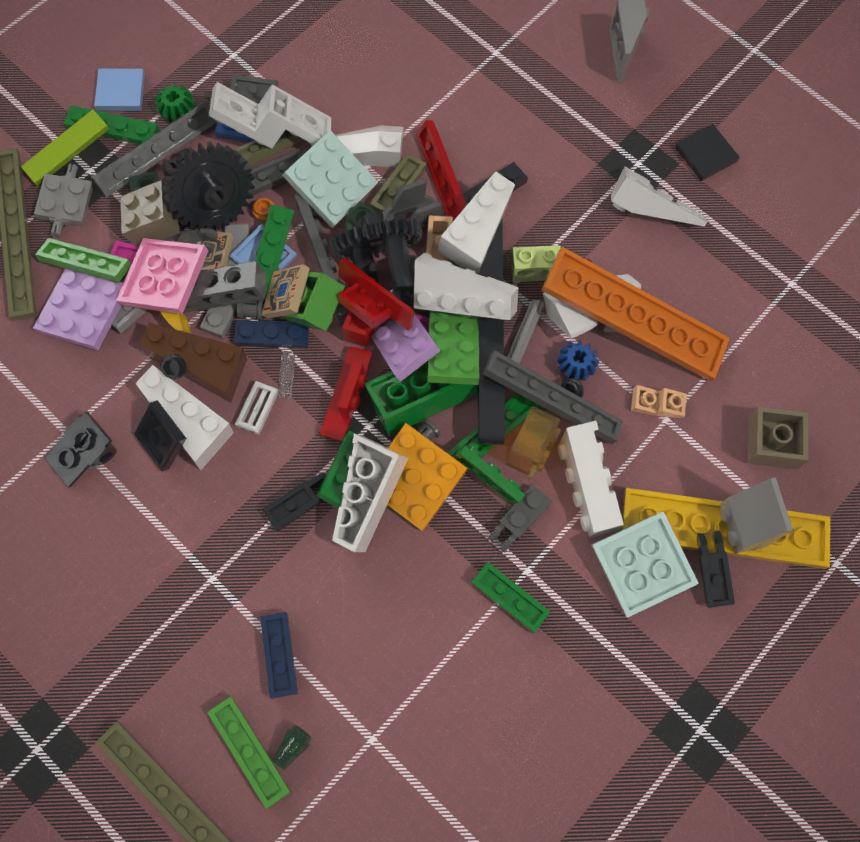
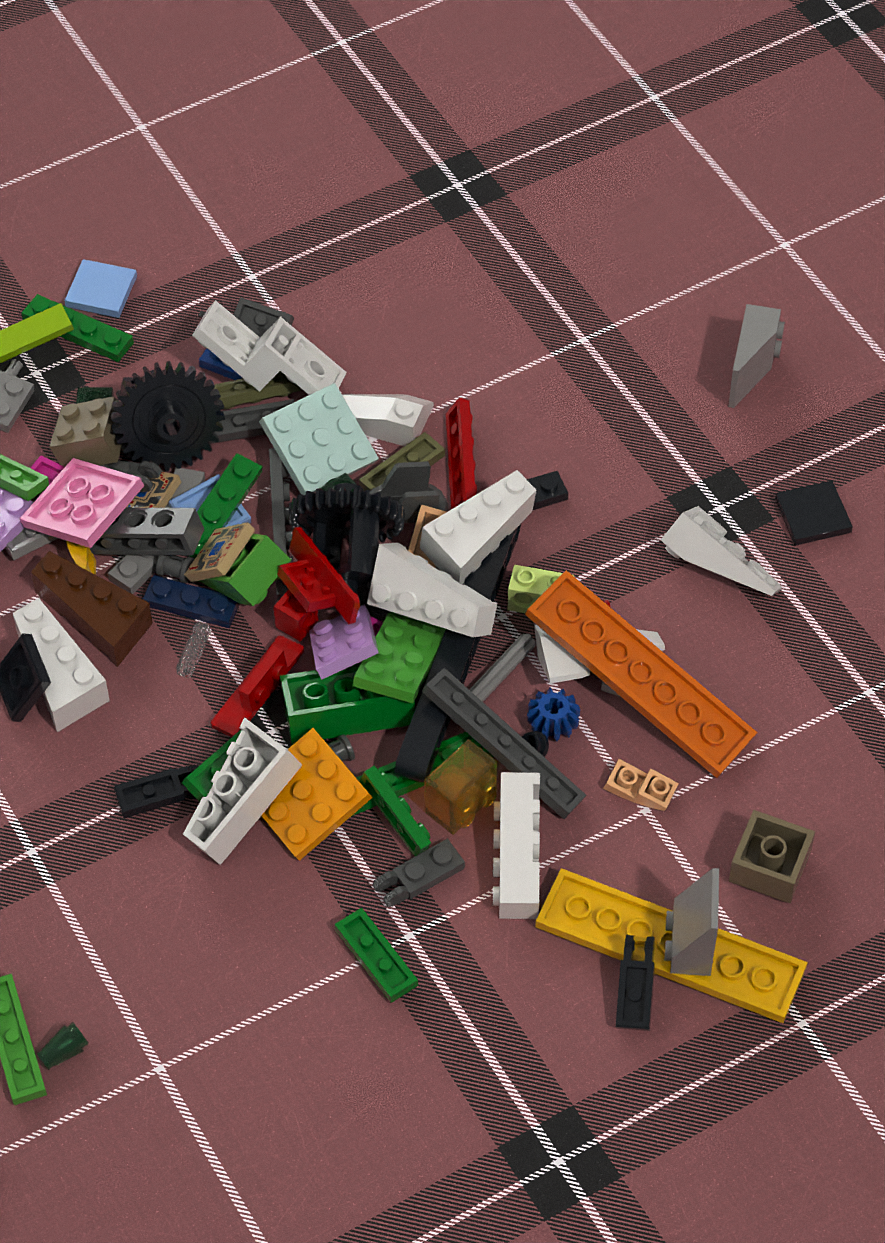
camera: 20 degrees right, 15 degrees down
(154, 149) = (118, 363): dark grey plate -> none
(173, 366) = (62, 603): black plate -> none
(174, 102) = (161, 317): green gear -> none
(261, 208) = (224, 457): orange plate -> none
(265, 412) = (149, 683): white tile -> none
(279, 655) = (81, 947): dark blue plate -> none
(644, 564) = (550, 955): light aqua plate -> none

